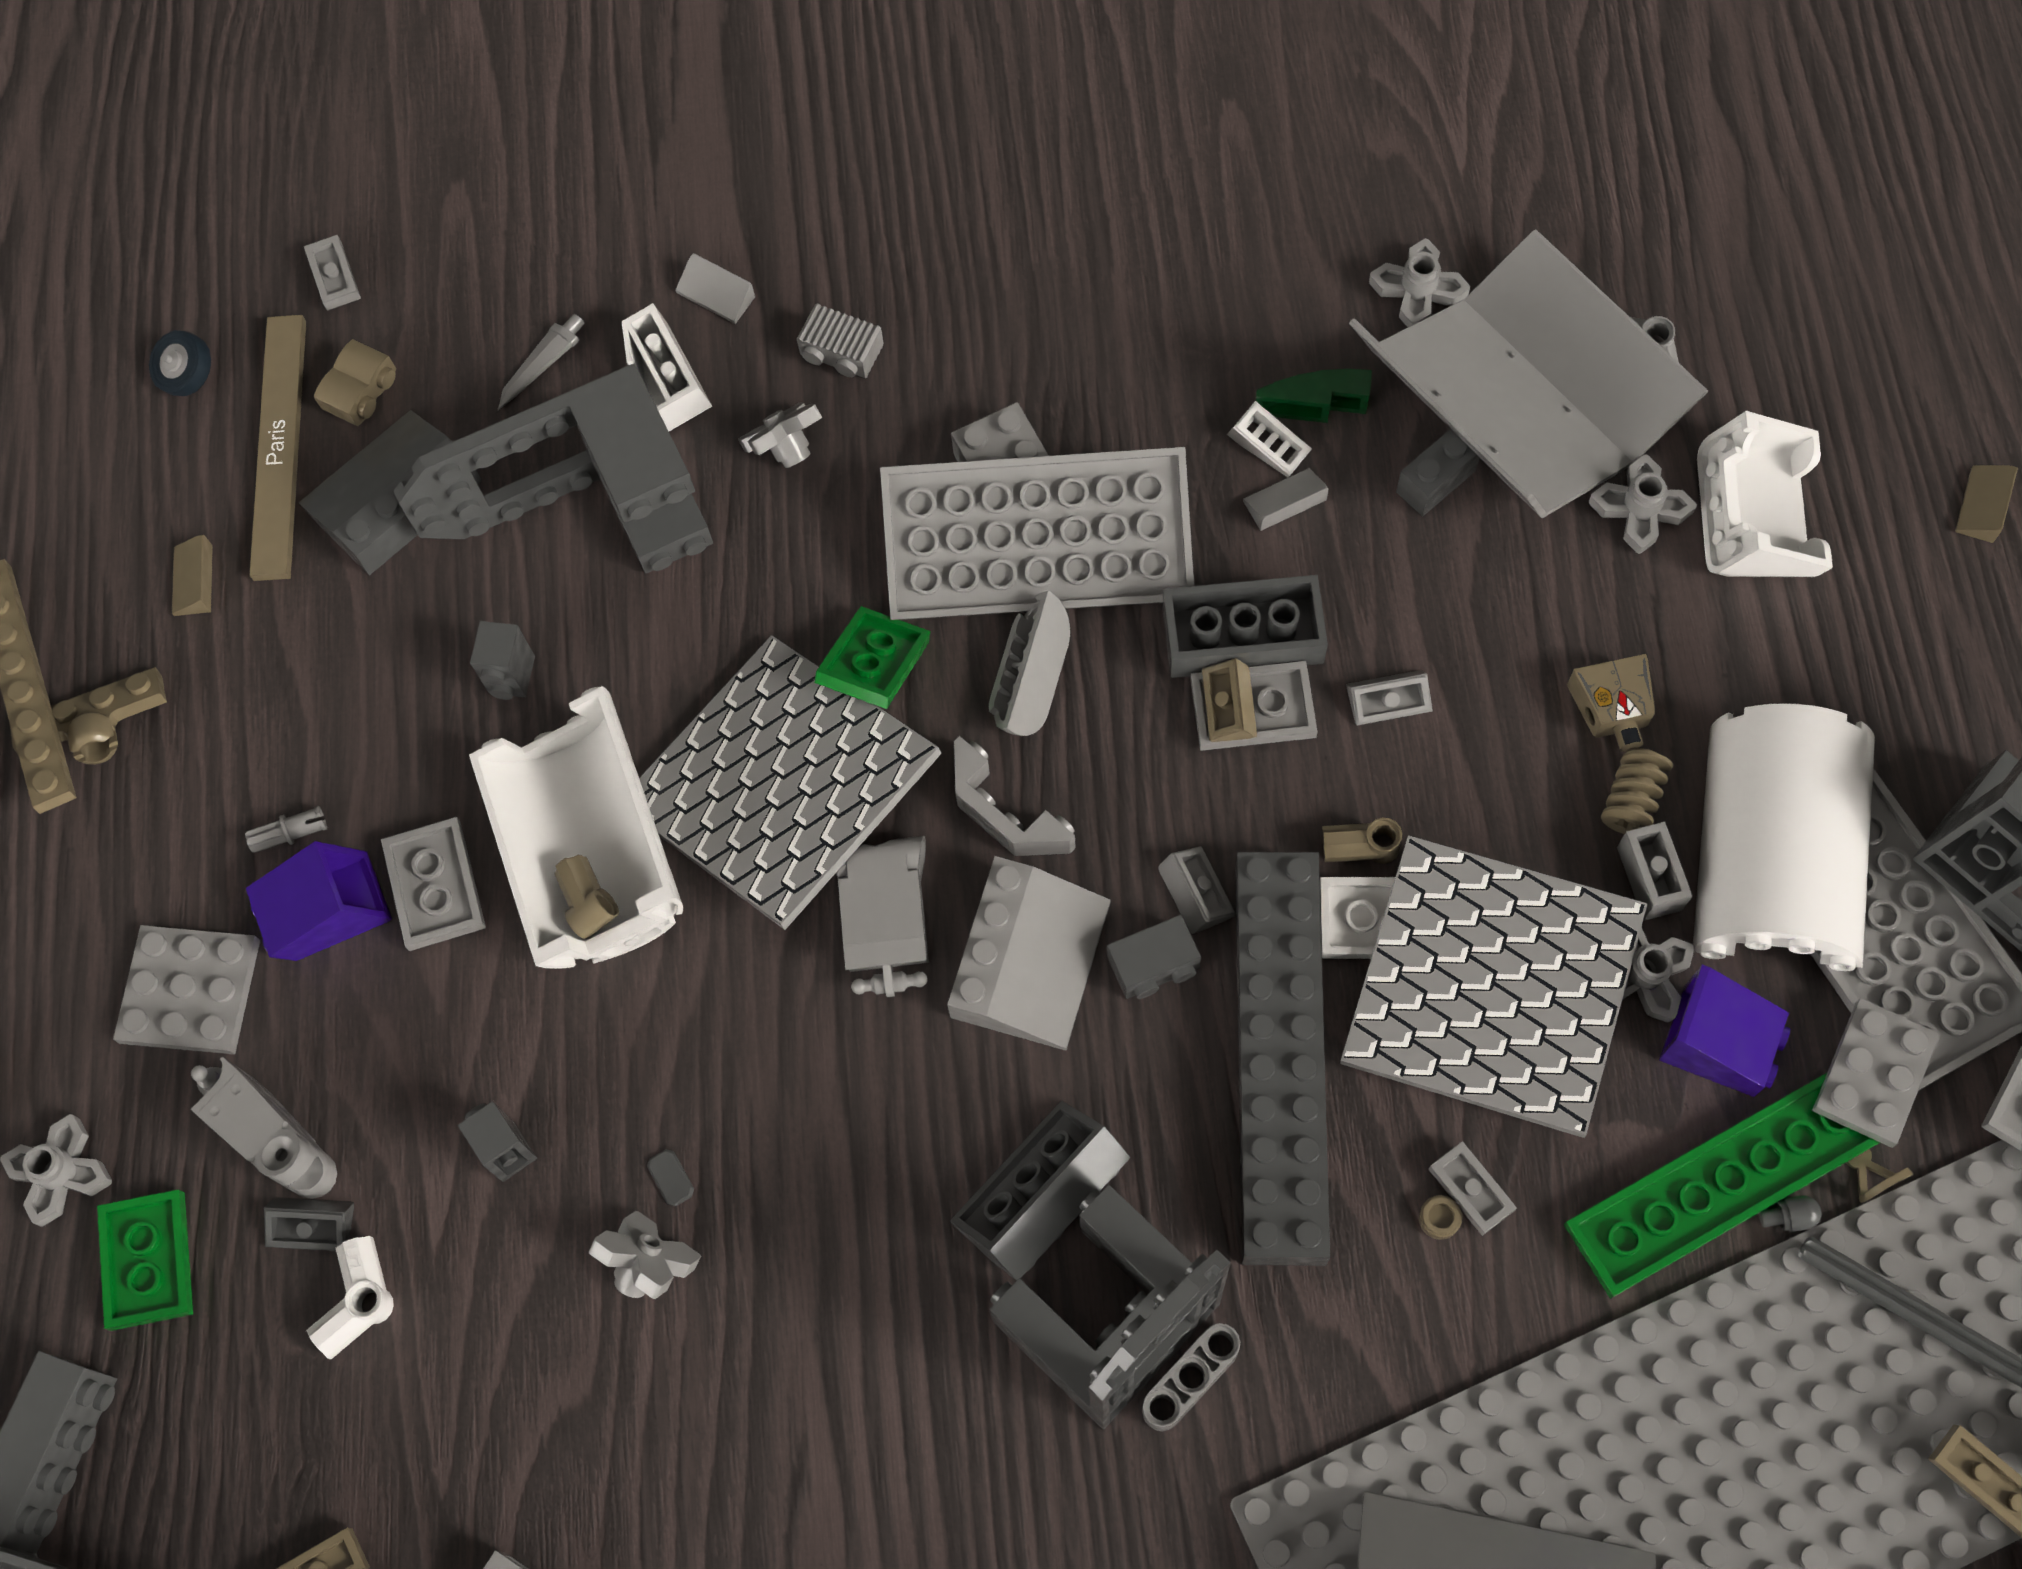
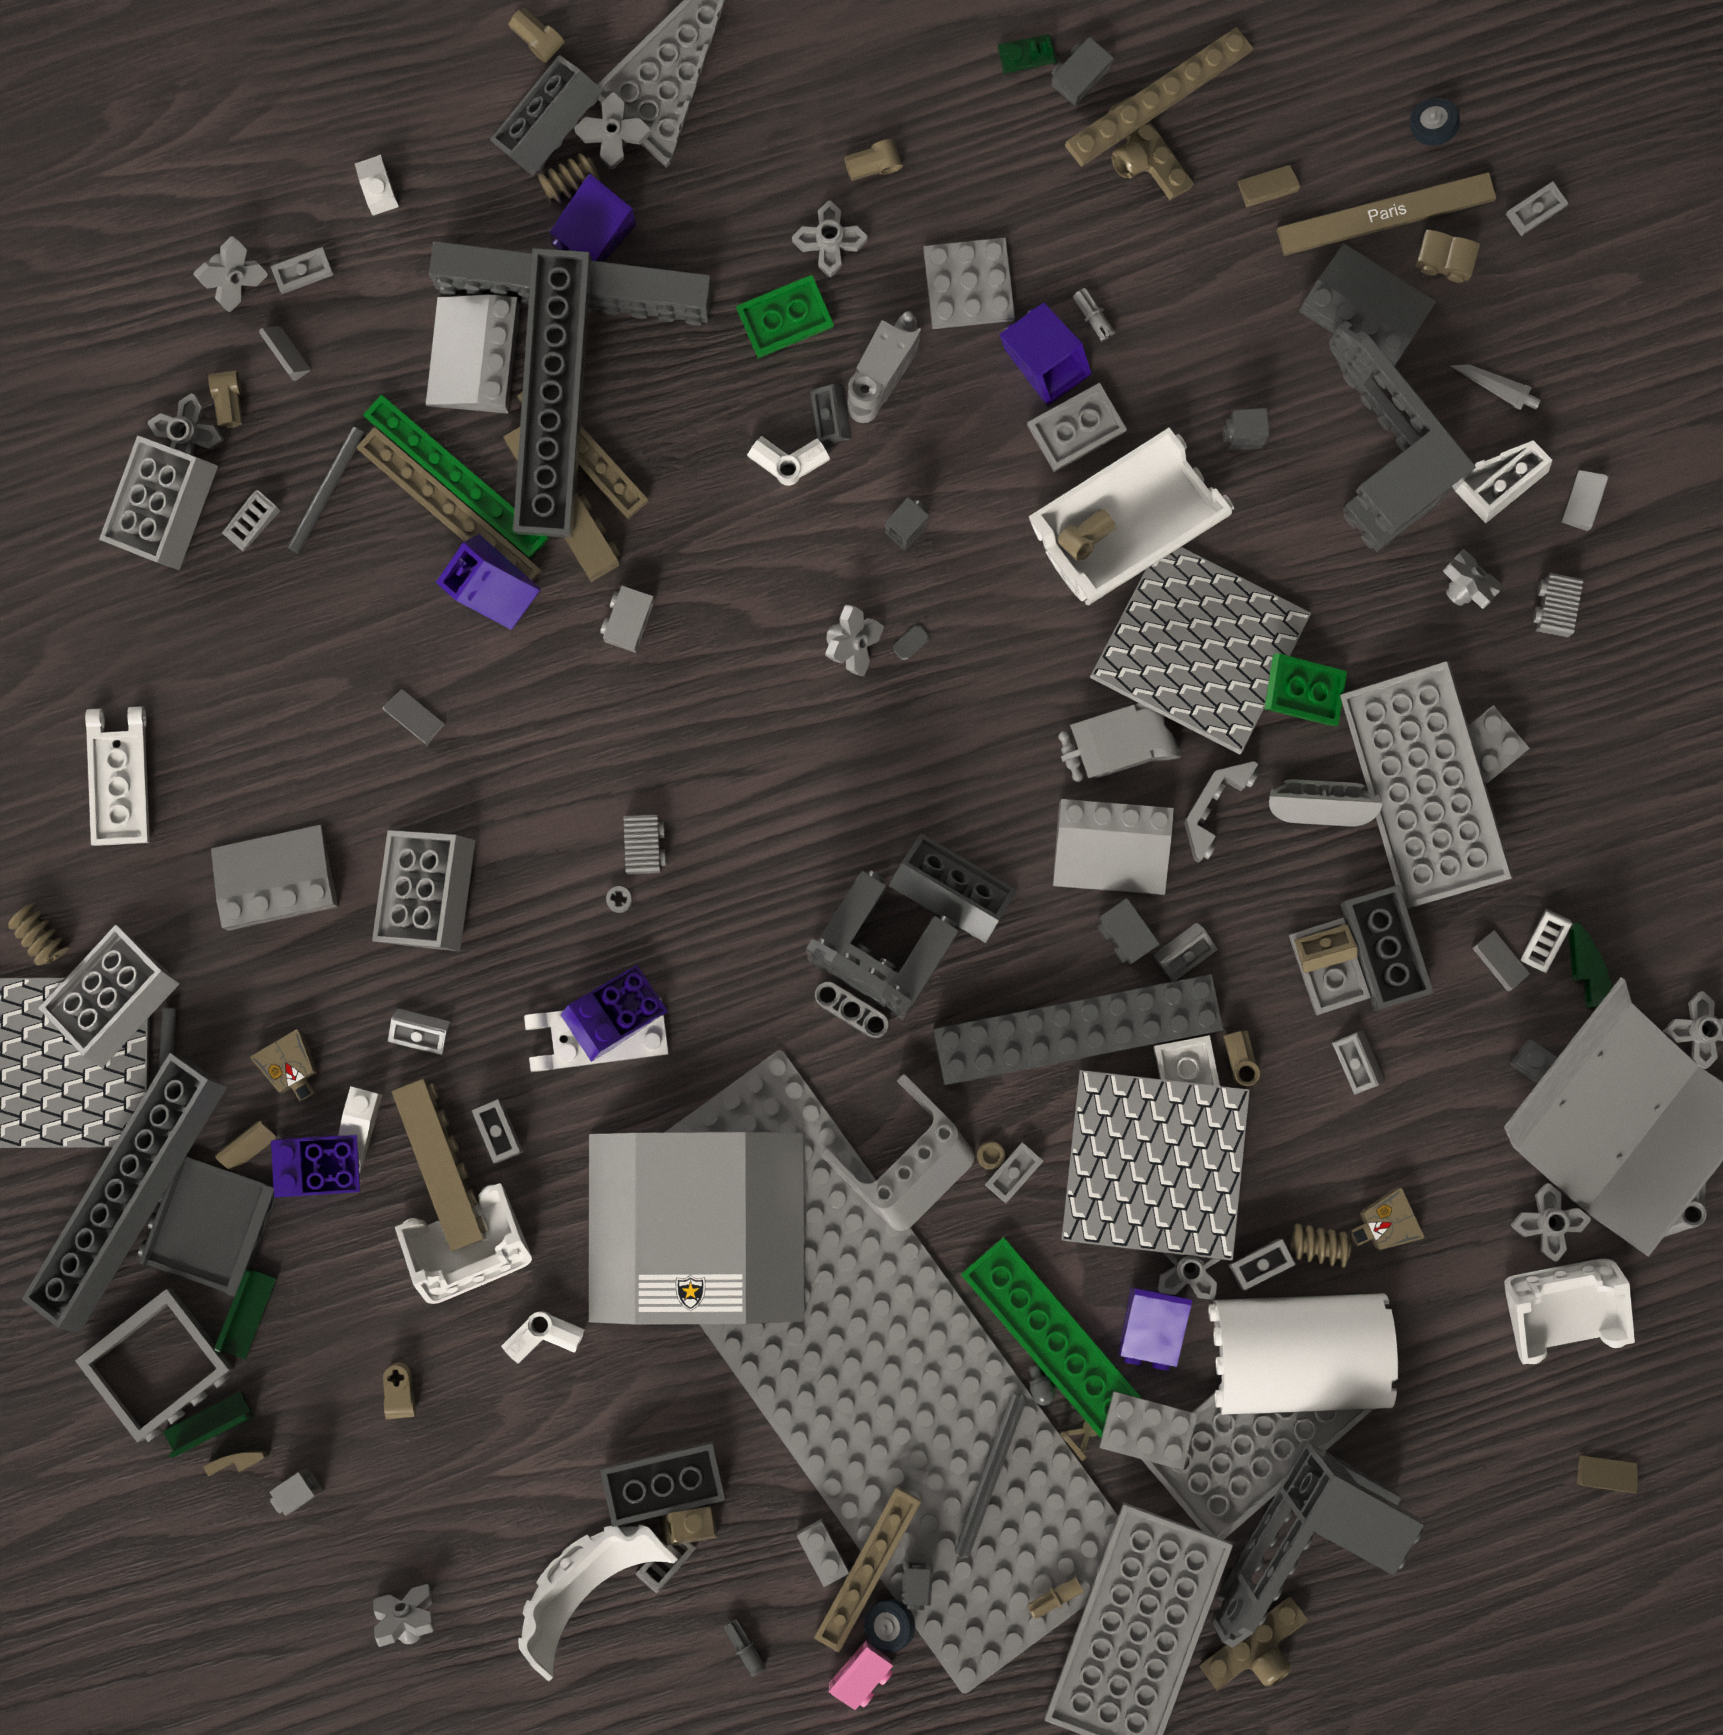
camera: 70 degrees right, 15 degrees up
(1457, 1326) = (919, 1173): none -> light grey windscreen

